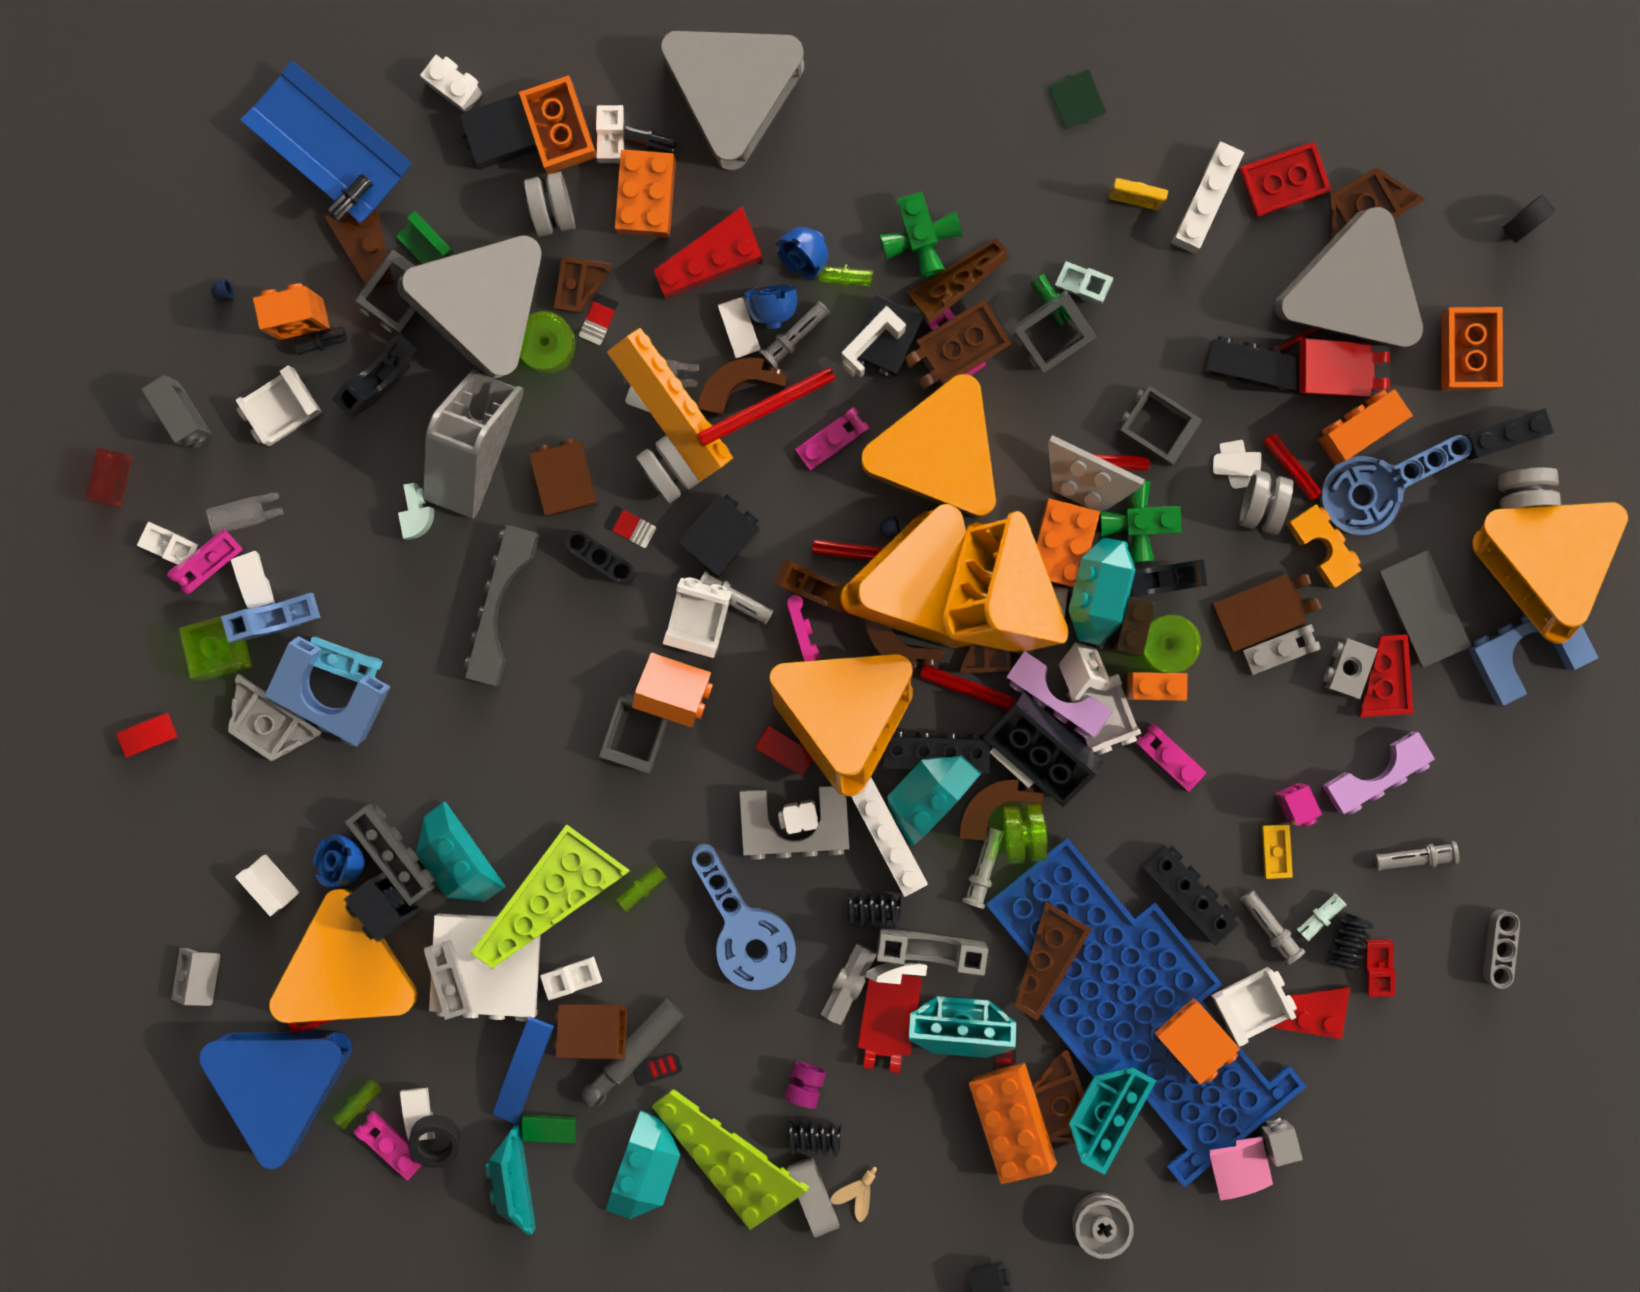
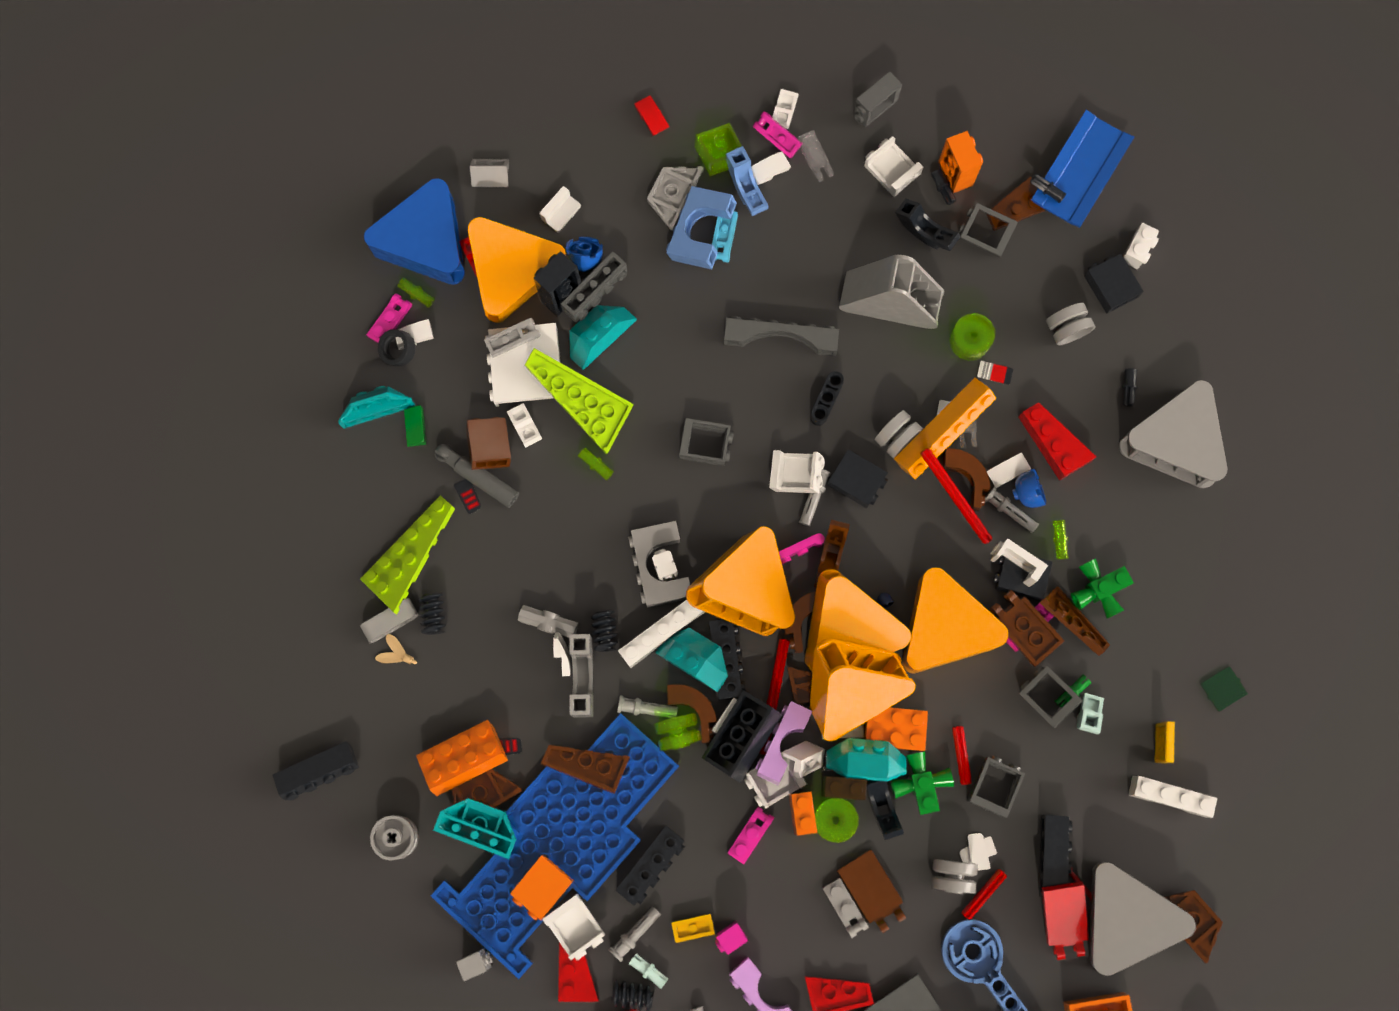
camera: 85 degrees right, 10 degrees down
(109, 477) = (824, 64): clear red brick -> none
(222, 290) = (965, 118): dark blue hinge -> none
(417, 519) = (832, 270): light aqua brick -> none
(423, 240) = (1025, 246): green panel -> none
(479, 300) = (994, 284): light grey brick -> none
(523, 1070) = (454, 400): blue slope -> none
(558, 124) = (1127, 321): orange brick -> none
(563, 477) = (878, 364): reddish brown brick -> none
(579, 282) = (1018, 354): reddish brown wing -> none
(610, 133) = (1131, 358): white slope -> none
(630, 526) = (852, 417): sticker -> none
(644, 1169) = (395, 496): teal wedge -> none
(645, 193) = (1091, 389): orange brick -> none
(672, 690) = (741, 461): brick -> none
(742, 926) = (578, 538): medium blue beam -> none
(784, 750) = (710, 549): red slope -> none
(803, 251) = (1072, 506): blue cylinder -> none
(805, 1085) = (470, 601): magenta wheel -> none
(831, 439) = (940, 549): dark pink plate -> none
(844, 550) = (862, 569): red axle -> none
(887, 1020) = (525, 656): red tile -> none
(962, 1027) = (527, 709): teal wedge -> none
(1087, 477) = (948, 737): light grey wing -> none
(1241, 1168) = (450, 937): bright pink slope -> none
(1285, 179) = (1197, 854): red tile -> none
(1339, 562) = (943, 918): light orange arch -> none
(1362, 659) = (850, 970): light grey brick -> none
(1364, 425) = (1026, 943): orange brick -> none

